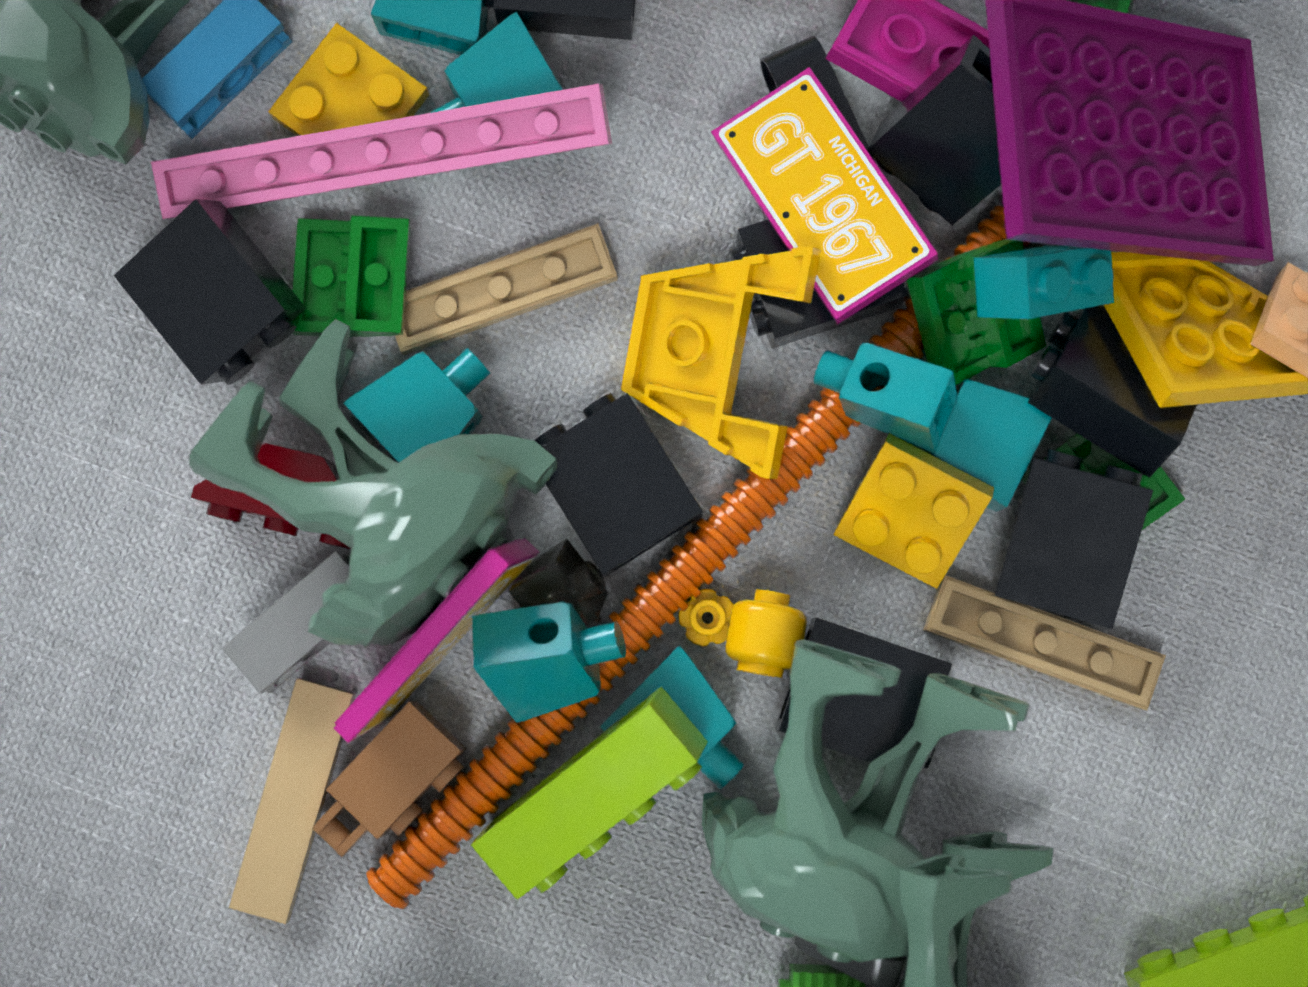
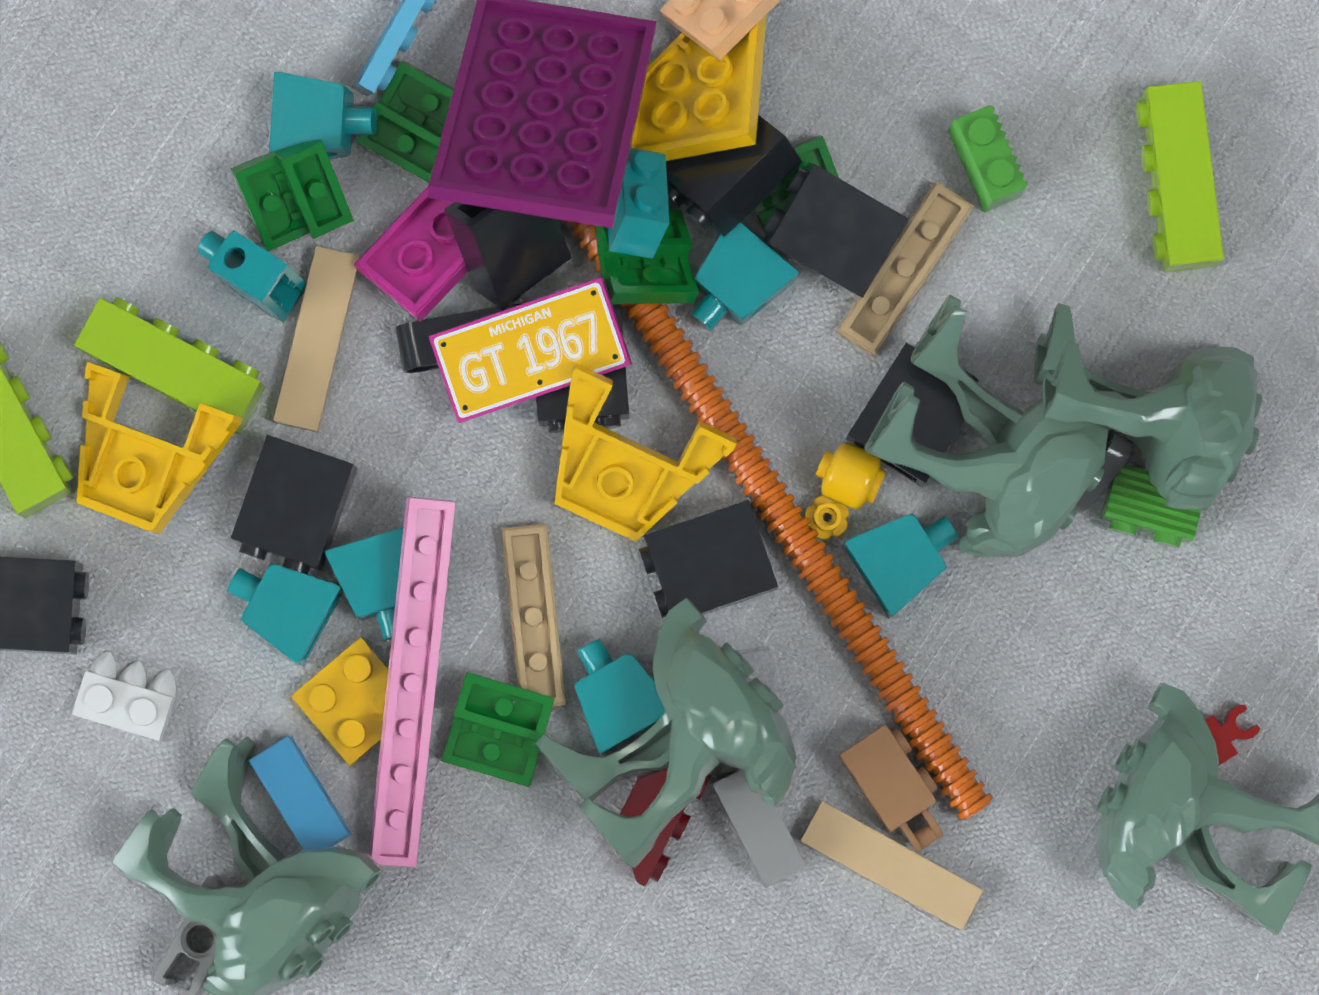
camera: 75 degrees left, 0 degrees up
(211, 293) = (489, 837): black brick -> none
(435, 638) = (798, 719): dark pink tile -> none
(542, 657) = (831, 642): teal torso -> none
(562, 577) = (783, 622): clear smoke brick -> none
(591, 794) = (940, 633): lime brick -> none
(912, 404) = (706, 320): teal torso -> none
(913, 511) = (784, 342): yellow plate -> none
(1214, 713) = (987, 158): none -> bright green brick

